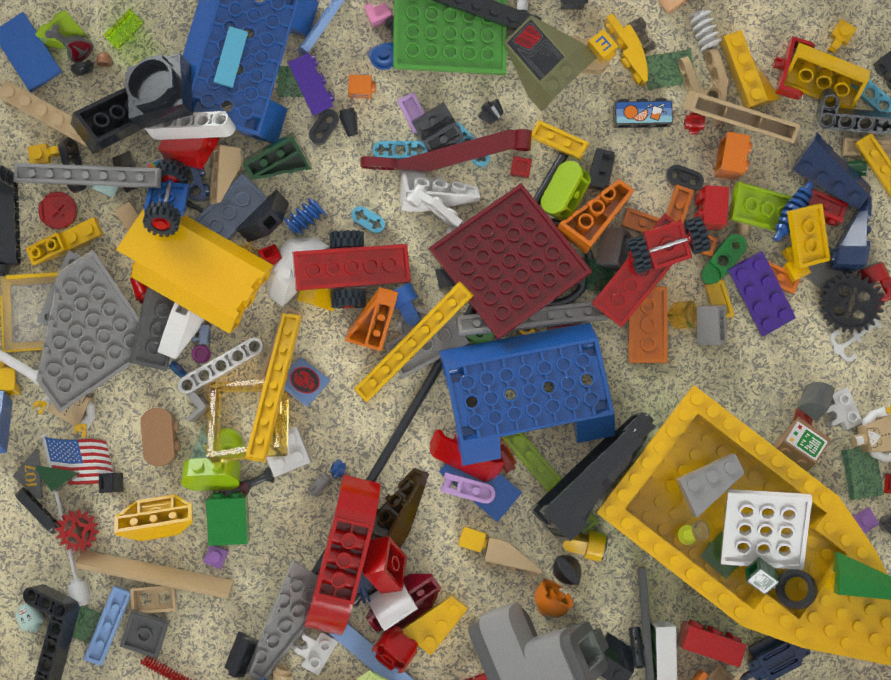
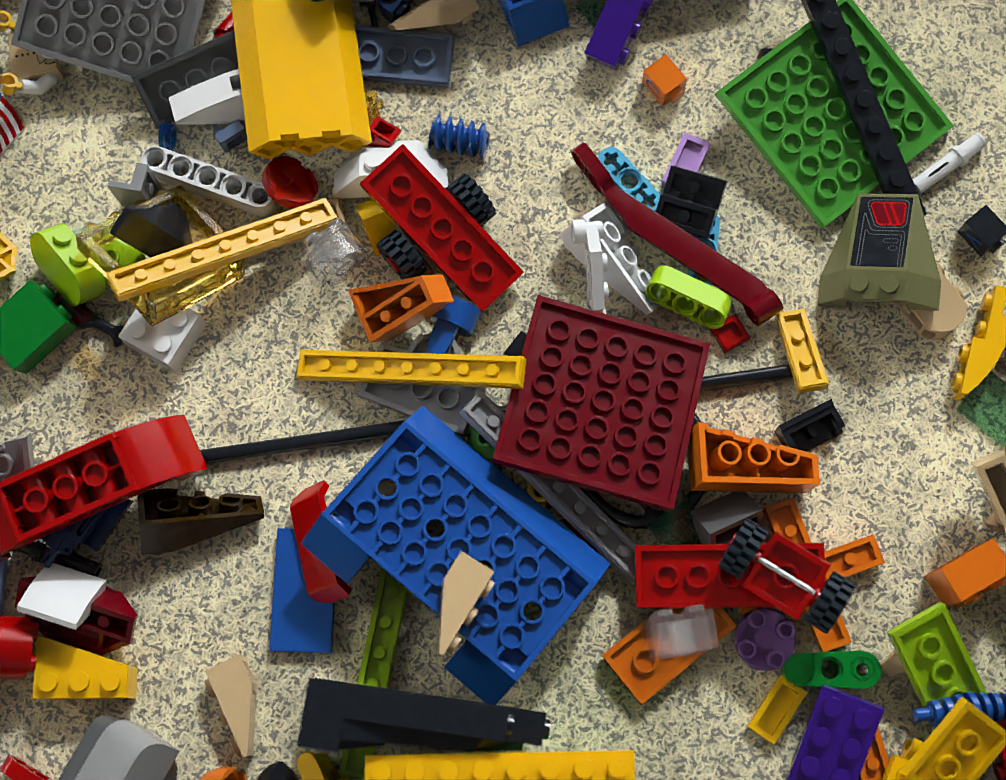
camera: 55 degrees right, 10 degrees down
(159, 436) = (71, 178): medium nougat brick -> none
(201, 353) = (206, 149): magenta plate -> none
(237, 414) = (153, 228): none -> black wedge
(258, 325) = (289, 182): none -> red tile
(264, 218) = (422, 94): black slope -> none
(277, 158) = (502, 54): dark green wedge -> none
(304, 383) = (260, 285): tile -> none
(318, 333) = (333, 253): none -> clear brick
(323, 127) = (582, 77): black plate -> none
(323, 480) = (159, 401): light grey pin -> none
(338, 468) = (188, 406): blue plate -> none
(349, 121) = (613, 100): black cone -> none
(365, 223) = (510, 211): medium azure beam -> none
(378, 15) = (761, 35): bright pink panel -> none
(381, 56) = (718, 73): blue piece -> none
(385, 565) = (104, 549): red brick -> none
(468, 488) = (282, 580): lavender plate -> none
(473, 539) = (223, 636): yellow brick -> none
(487, 172) = (688, 297): none -> lime beam
(491, 111) = (764, 244): black piece -> none
(508, 458) = (358, 598): clear red brick -> none
(553, 406) = (459, 593): none -> tan slope
(565, 190) = (748, 403): lime brick -> none
(603, 46) = (957, 305): yellow brick -> none
(642, 113) = (921, 423): brick -> none
(653, 317) = (681, 633): none -> clear brick
(683, 278) = (765, 639): none -> medium lavender dish
(683, 315) = (719, 677): clear yellow panel -> none
(684, 177) = (893, 538): black plate -> none
(694, 123) = (967, 495): red gear -> none
(711, 324) = (737, 722): light grey brick -> none
(713, 206) = (885, 600): red brick -> none

